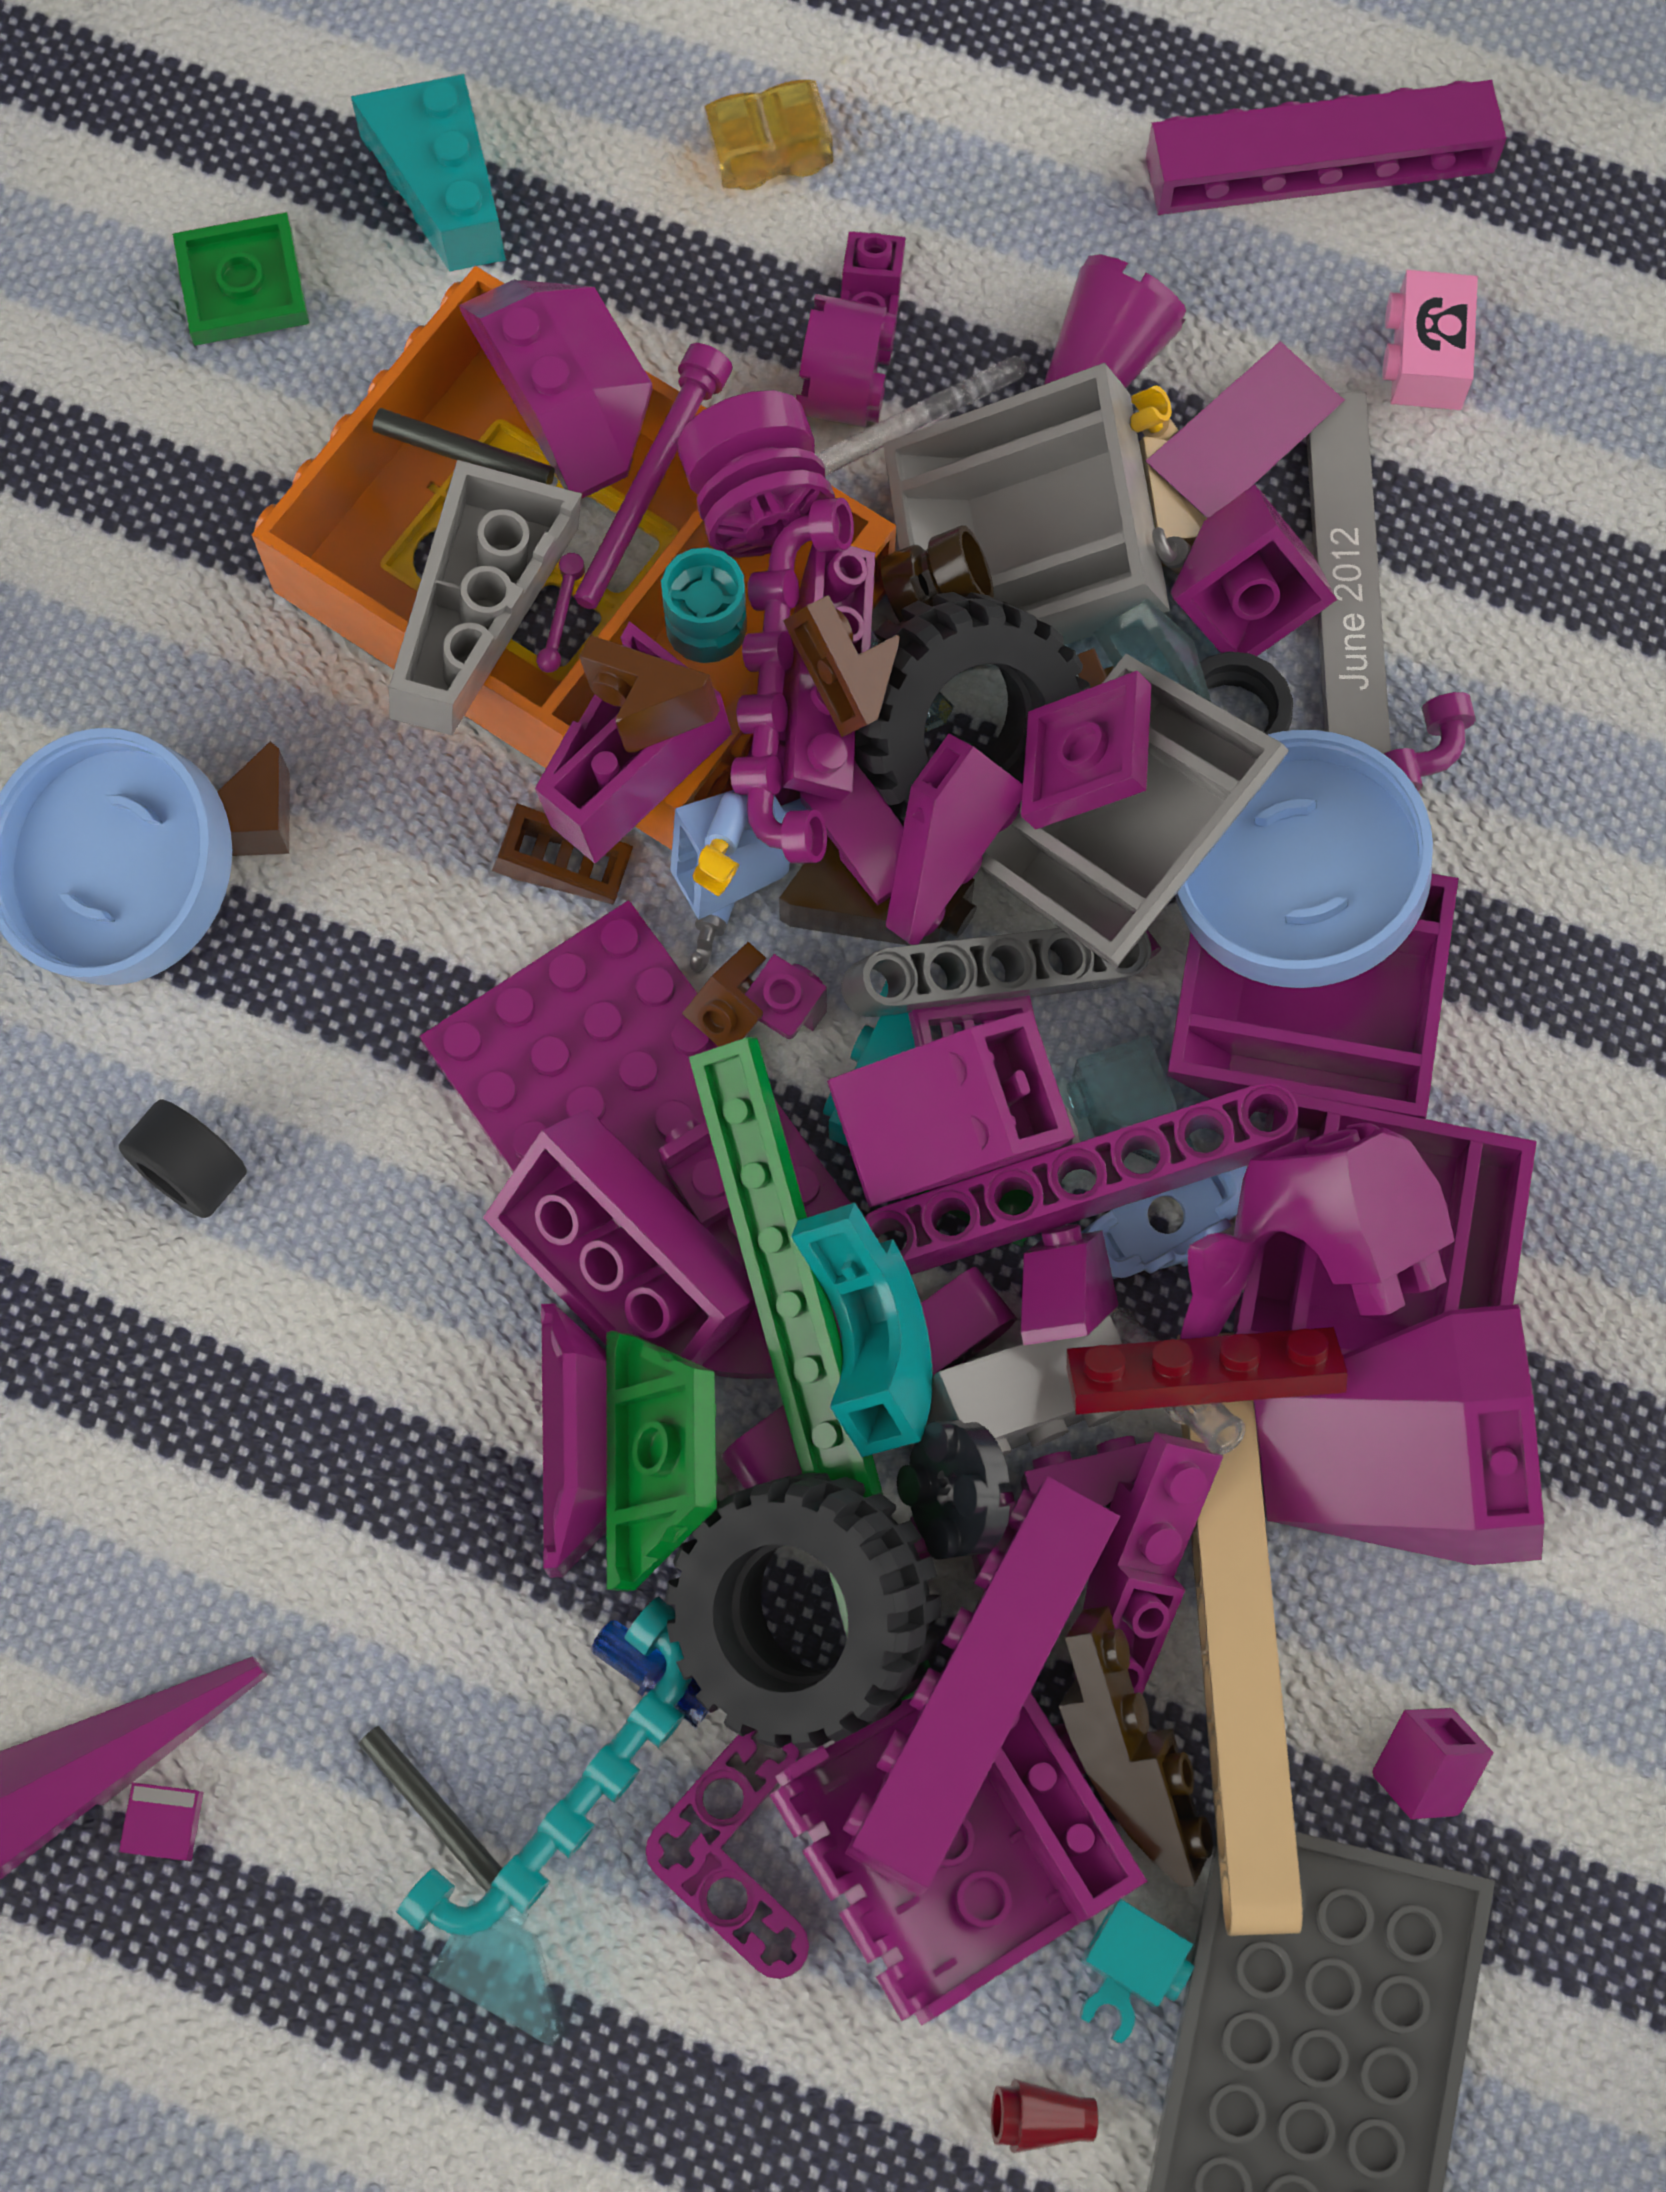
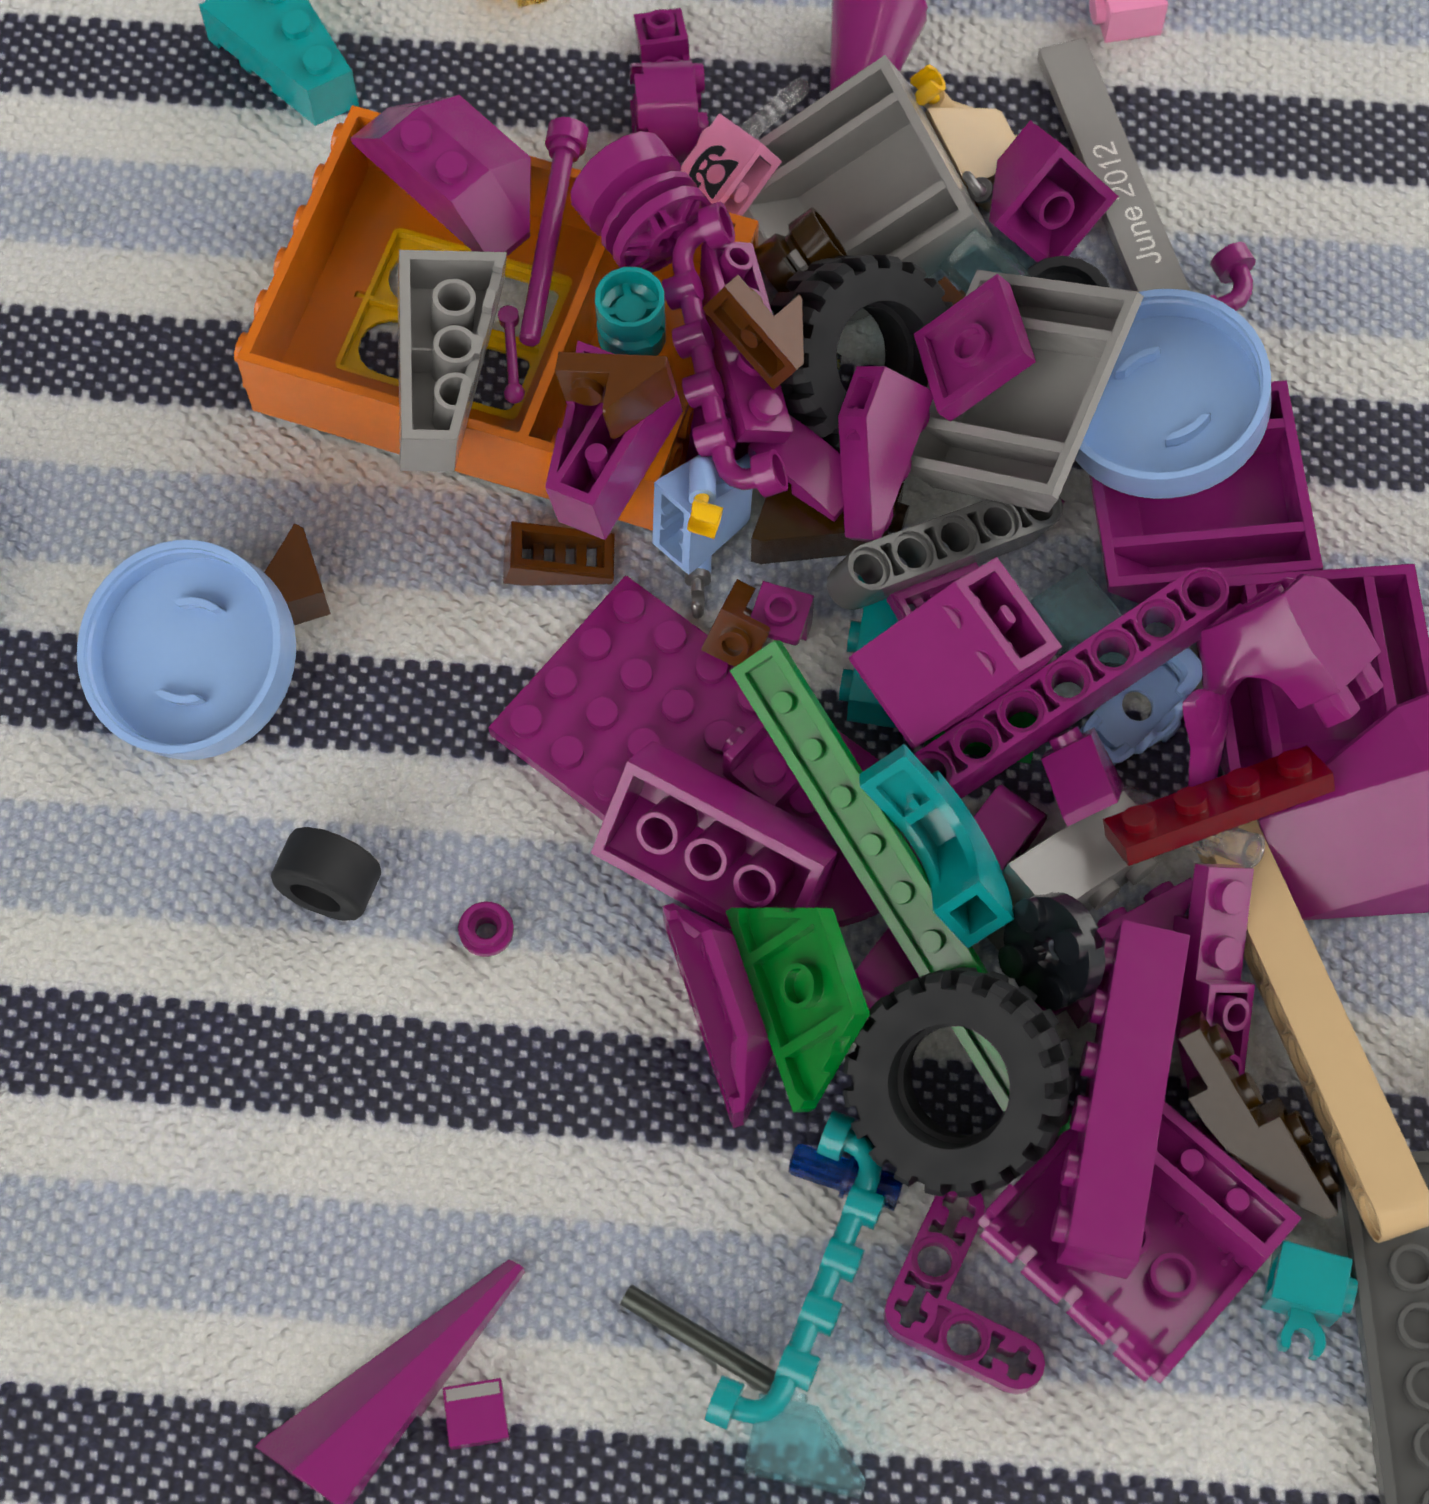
camera: 15 degrees left, 5 degrees down
(240, 278) = (147, 171): green plate -> none
(335, 1253) = (481, 914): none -> magenta plate
(459, 446) = (377, 246): pearl dark grey bar -> none
(884, 452) = (730, 165): none -> bright pink brick
(1040, 2117) = (1272, 1436): dark red cone -> none
(1245, 430) = (1003, 87): magenta sticker -> none

